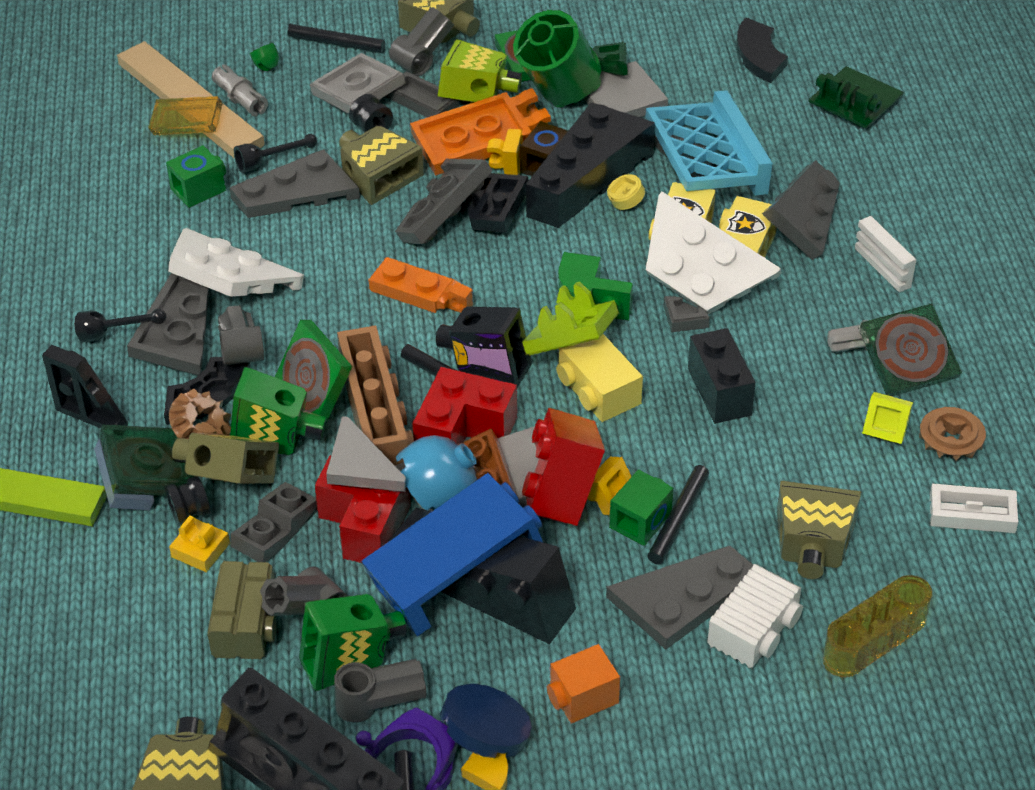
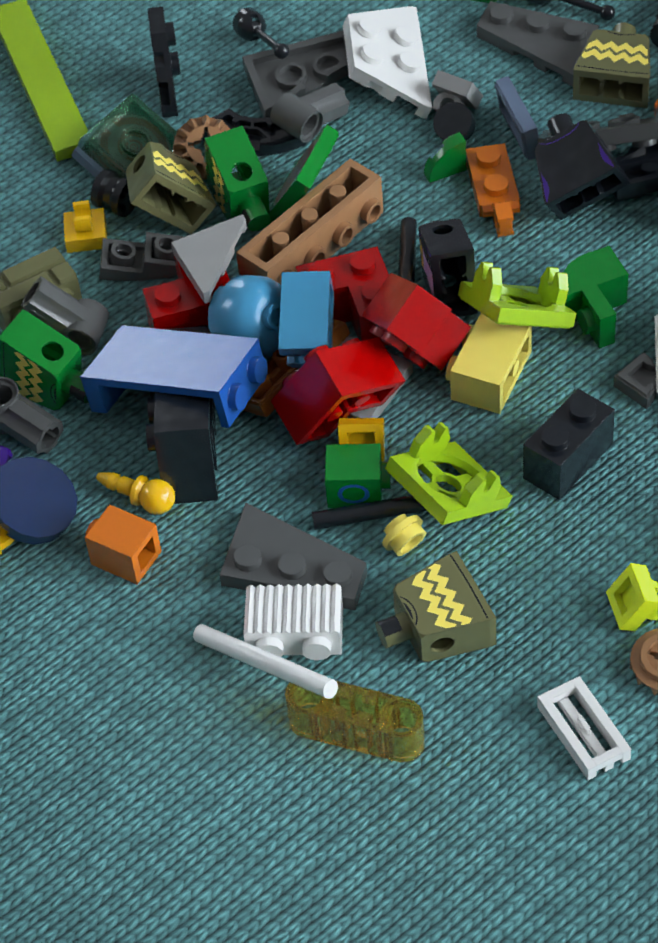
camera: 60 degrees right, 5 degrees up
(305, 251) = (455, 90): none -> light grey tile
(336, 271) = (452, 119): none -> black tile
(371, 293) = (448, 160): none -> green tile
(372, 235) = (517, 117): none -> sand blue tile
(468, 225) = (576, 167): none -> black torso
(489, 435) = (305, 314): none -> dark azure hinge
(546, 378) = (415, 322): none -> red brick
(546, 641) = (153, 495): none -> yellow bar
(697, 449) = (477, 489): none -> lime piece
(722, 509) = (403, 534): none -> light yellow plate
(791, 646) = (266, 661): none -> white bar

